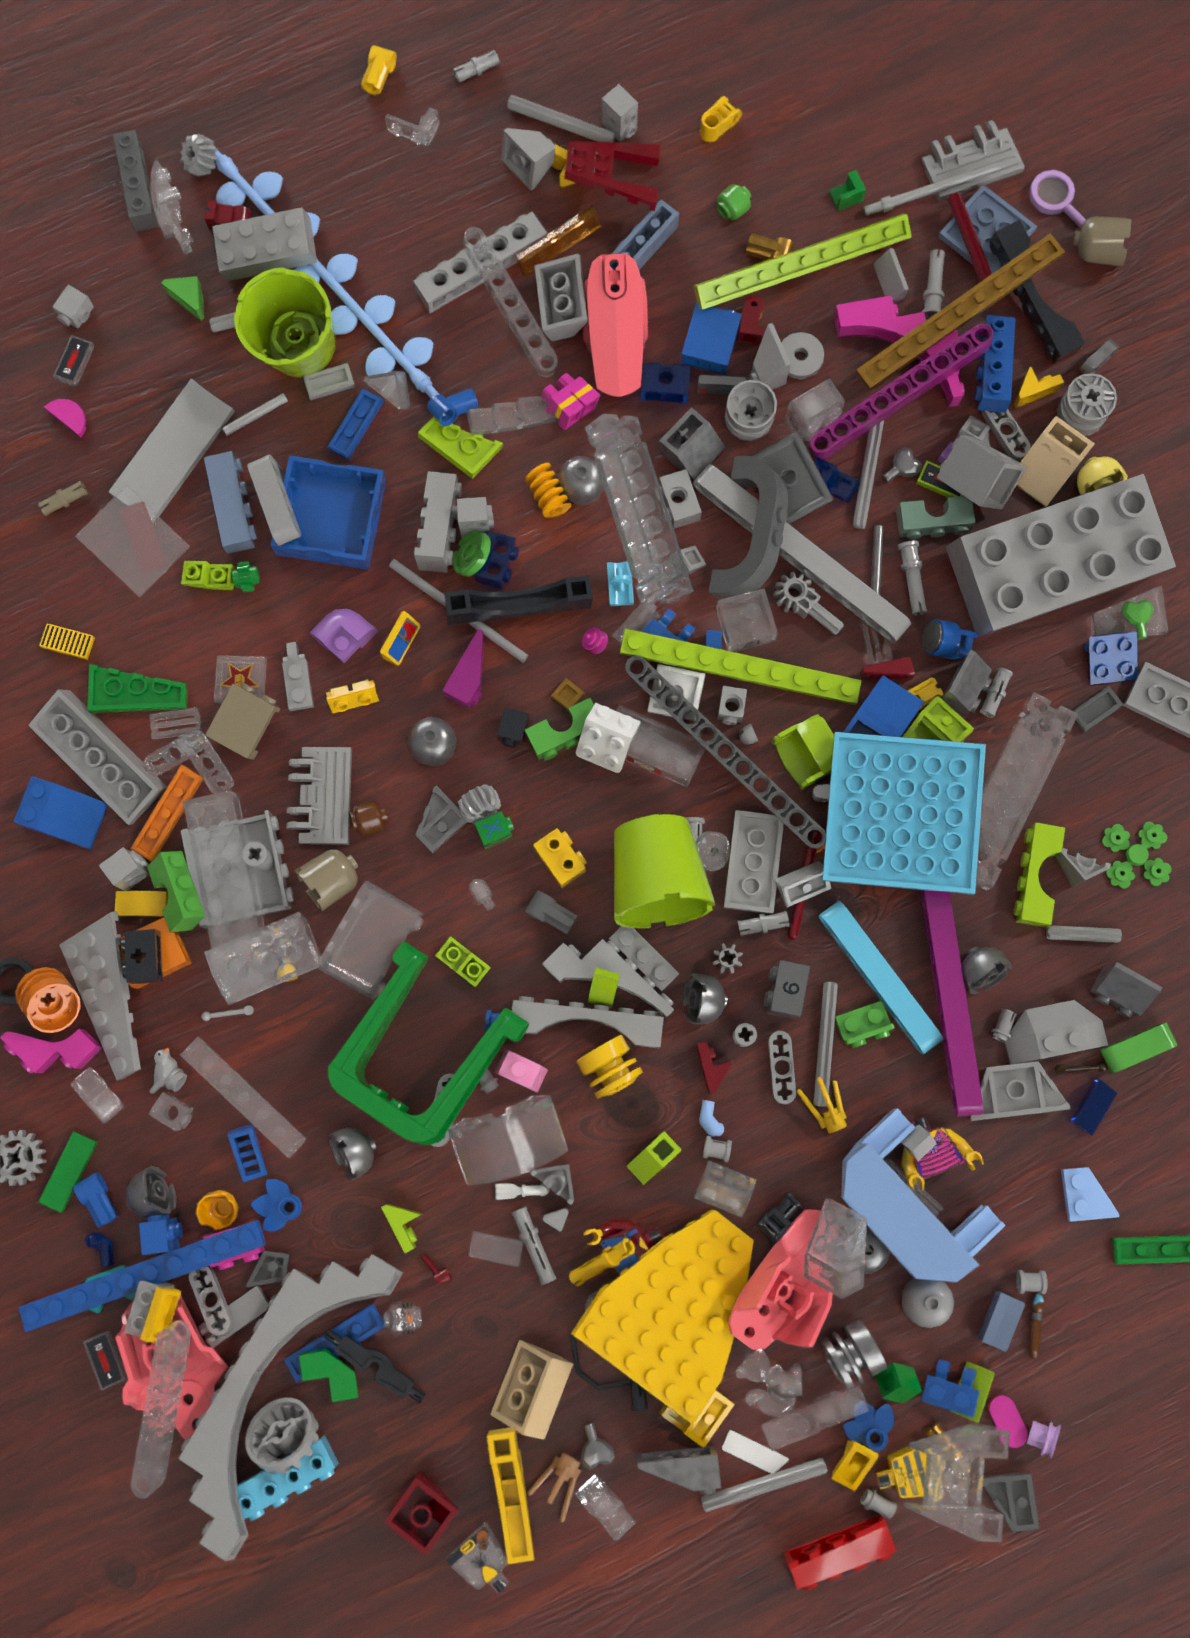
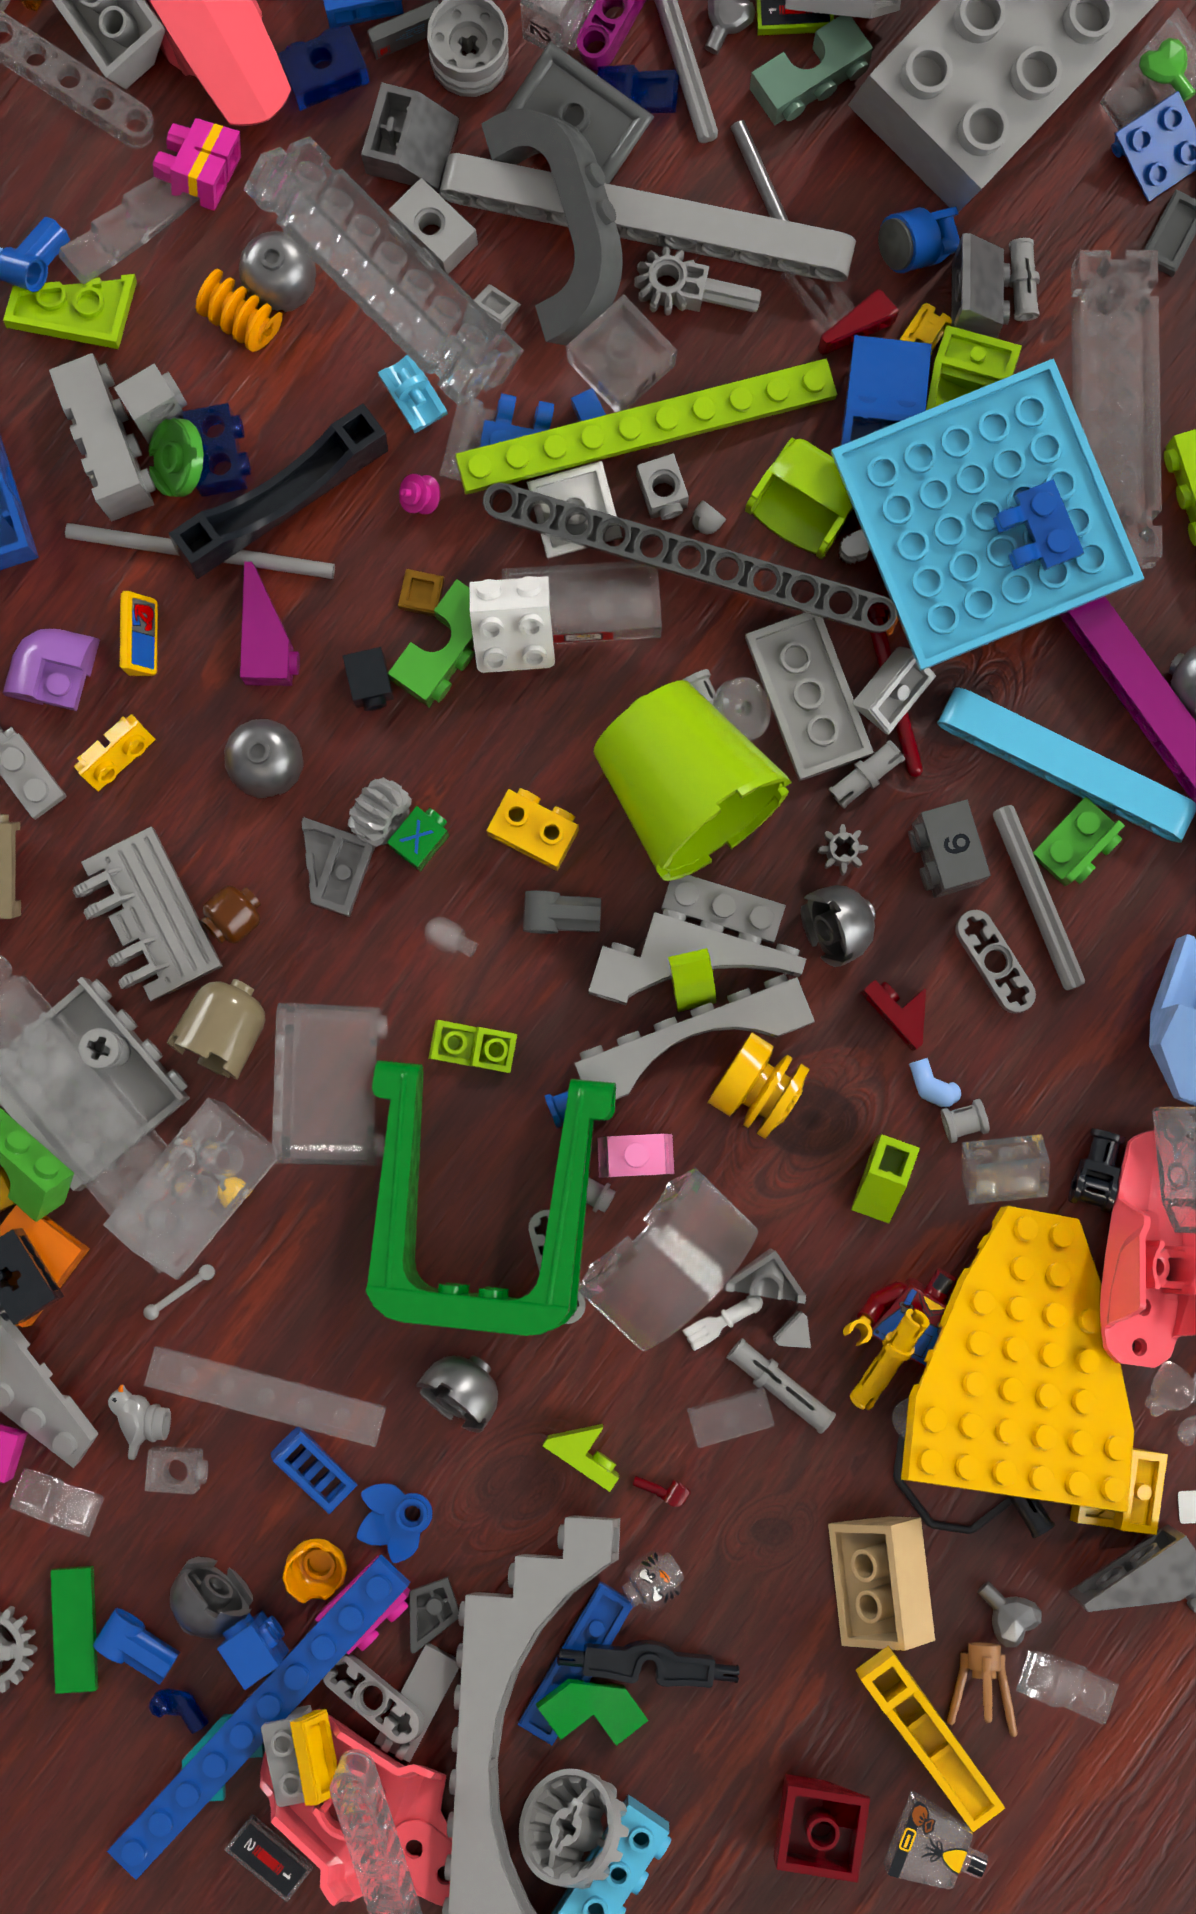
camera: 25 degrees left, 5 degrees up
(748, 1028) = (920, 931): light grey bush -> none
(833, 1118) = (1102, 993): yellow plant -> none
(912, 566) = (813, 158): light grey pin -> none
(935, 835) = (1047, 524): none -> blue plate

